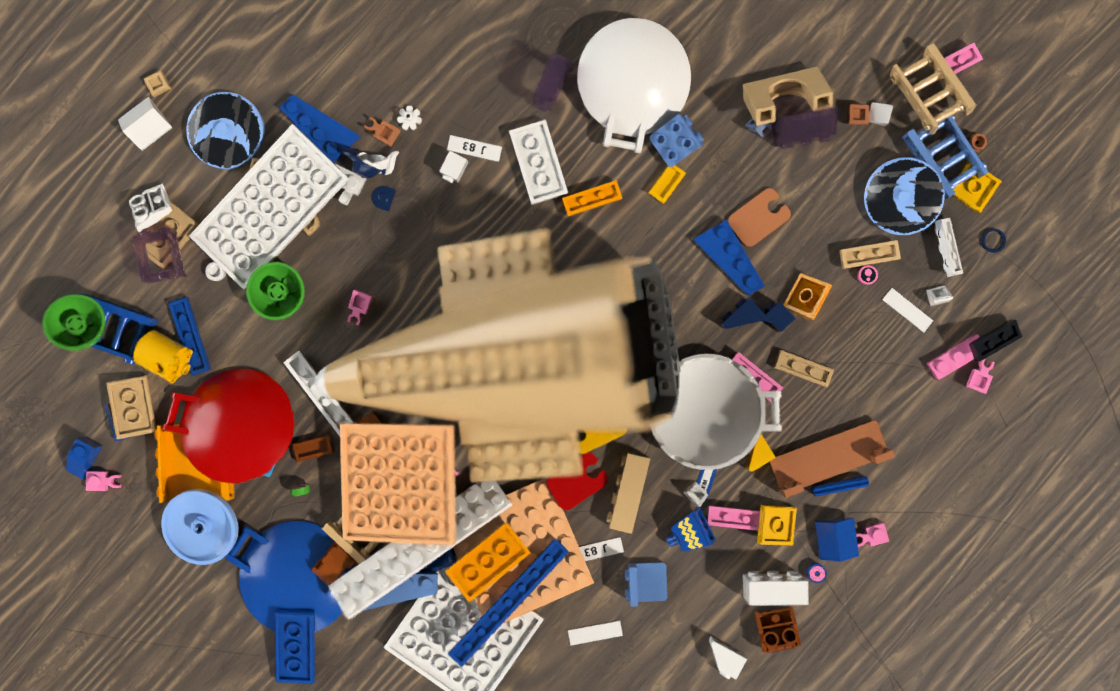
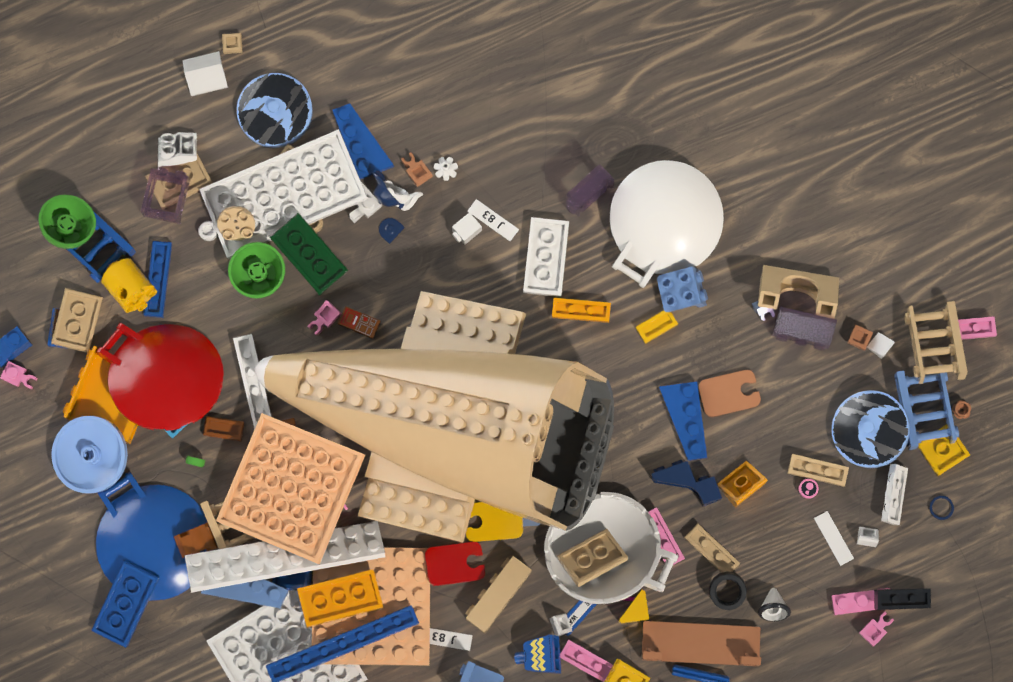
camera: 30 degrees right, 10 degrees down
(230, 260) = (227, 224): none -> tan plate
(317, 253) = (309, 253): none -> dark green tile
(393, 297) = (359, 322): none -> dark orange tile
(701, 424) = (592, 557): none -> tan tile
(841, 412) = (727, 605): none -> black tyre
(881, 396) = (774, 607): none -> white hat

